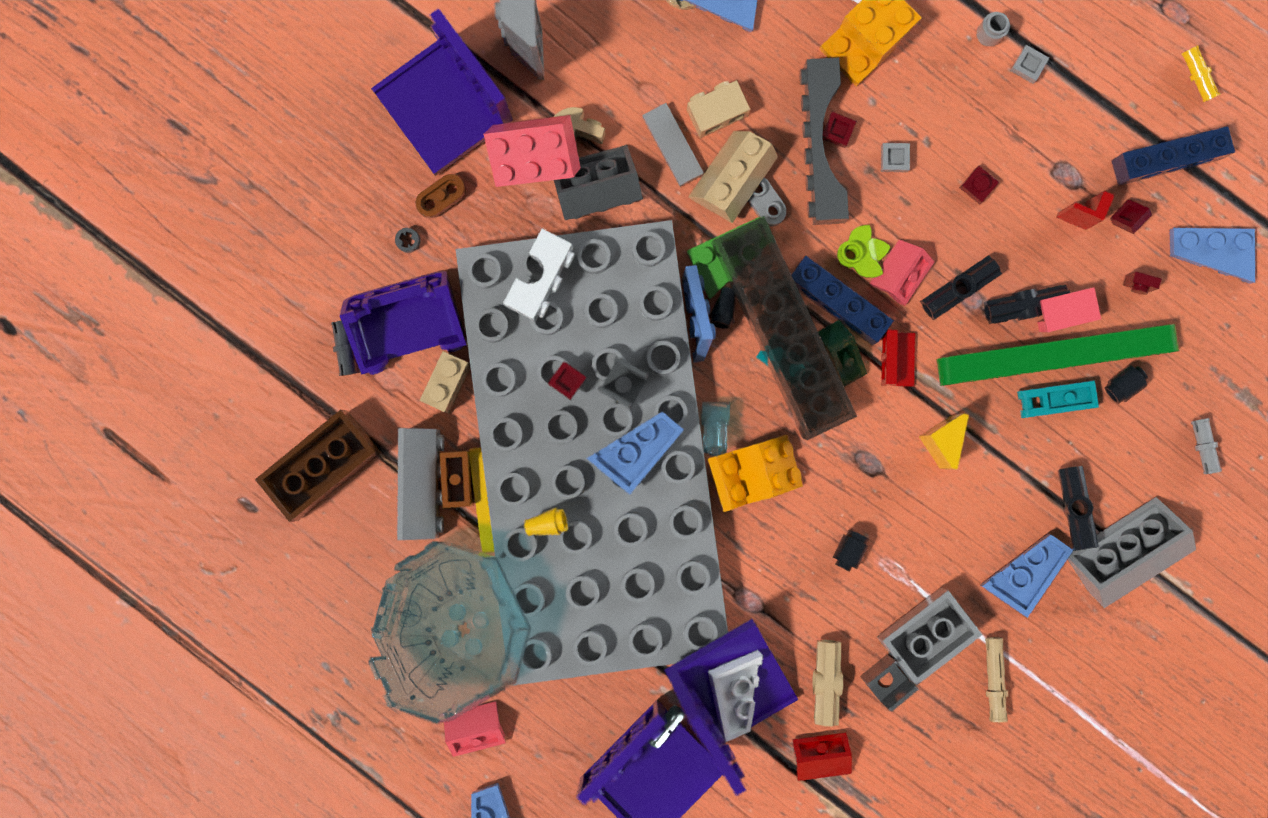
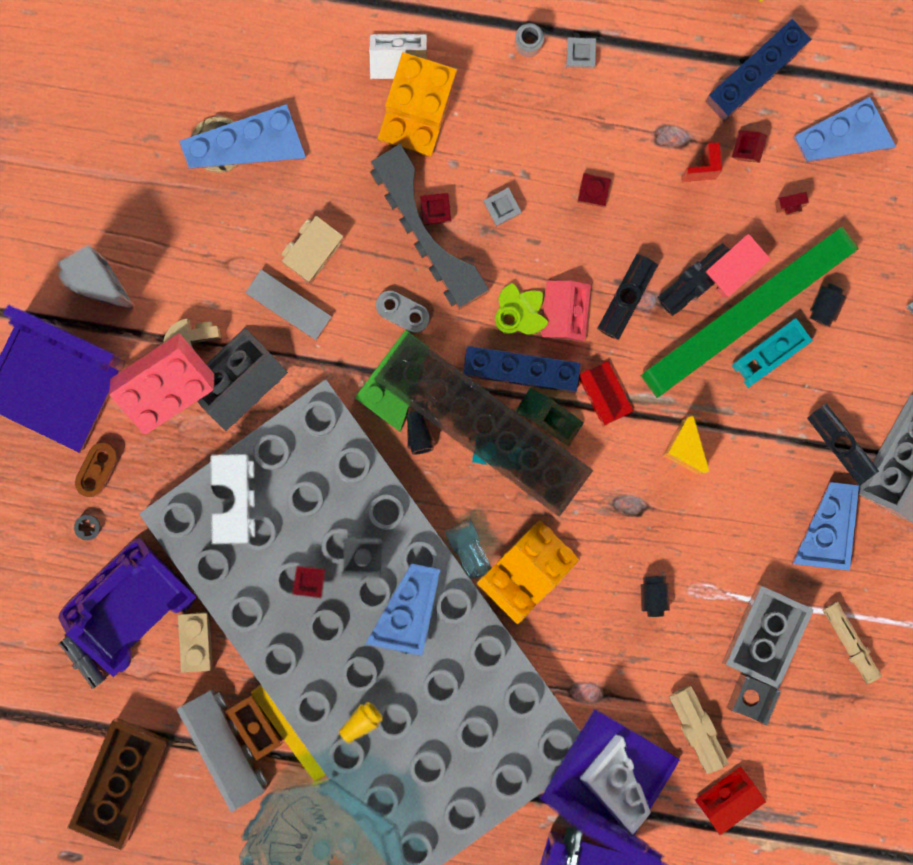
camera: 40 degrees left, 0 degrees up
(700, 327) = (389, 444): medium blue wing -> none
(734, 174) = (361, 304): tan slope -> none

